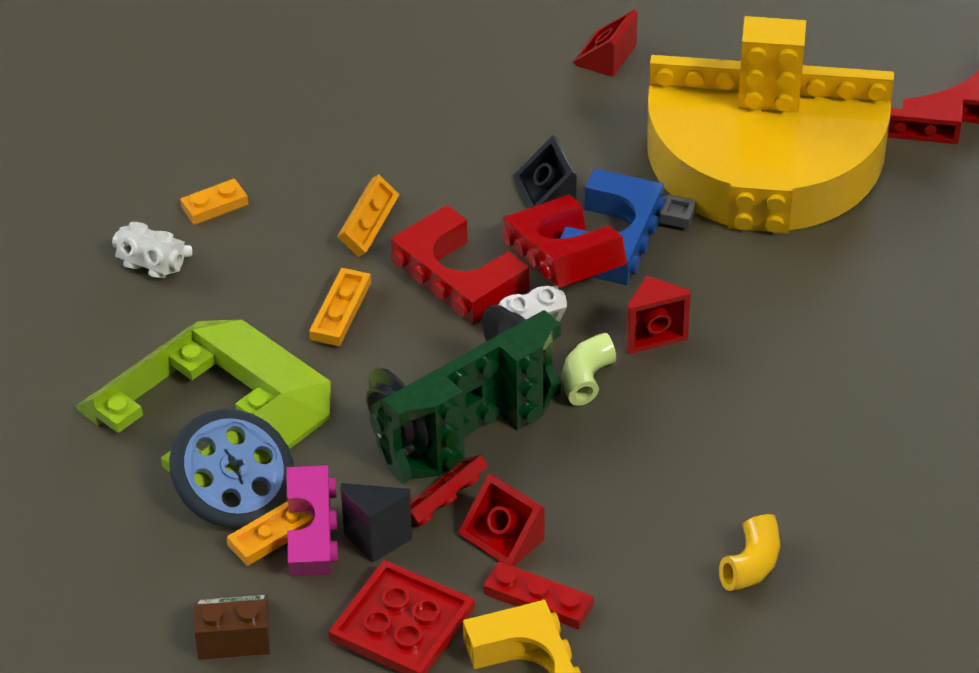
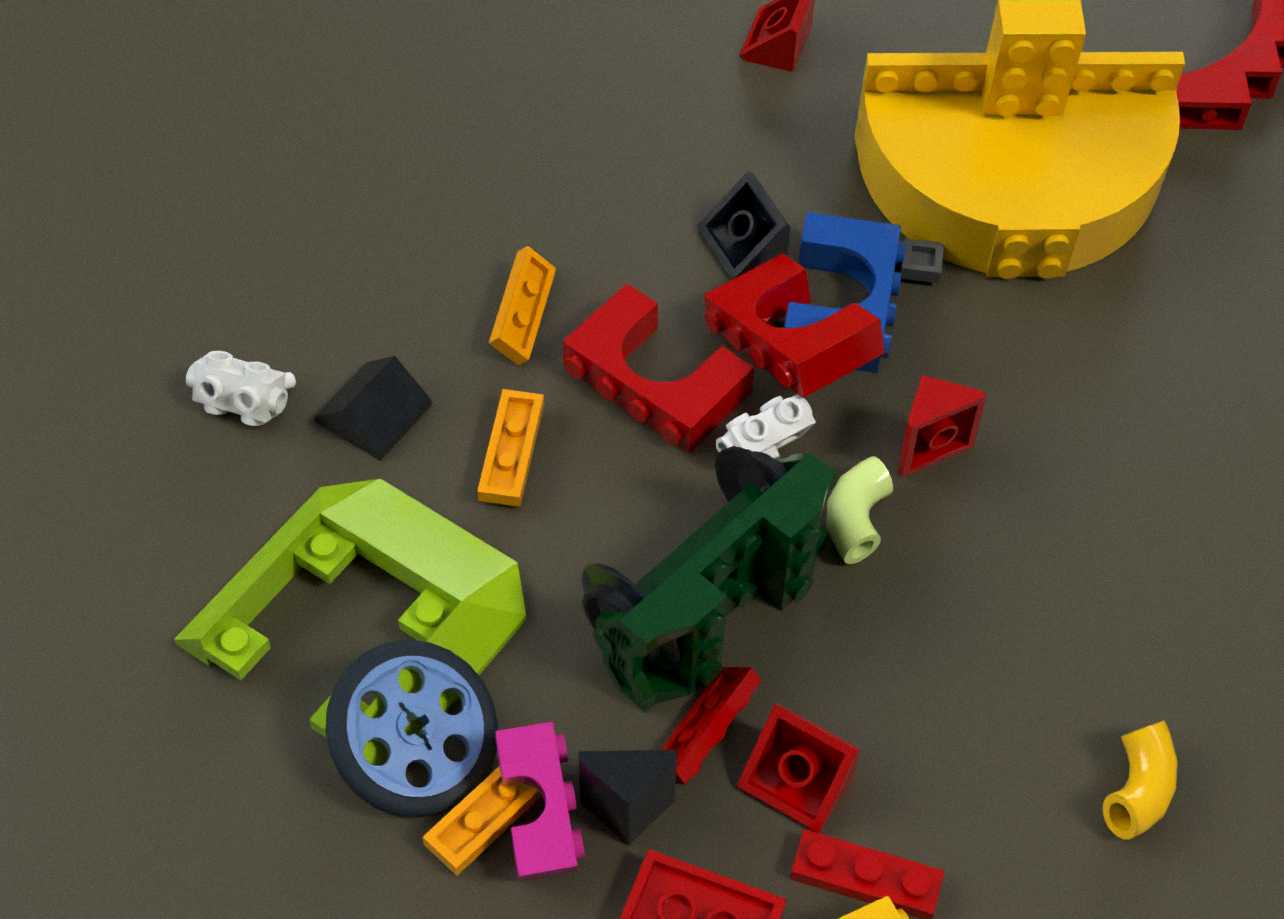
camera: 10 degrees left, 10 degrees up
(214, 201) = (311, 301): light orange plate -> none
(248, 273) = (375, 407): none -> black slope

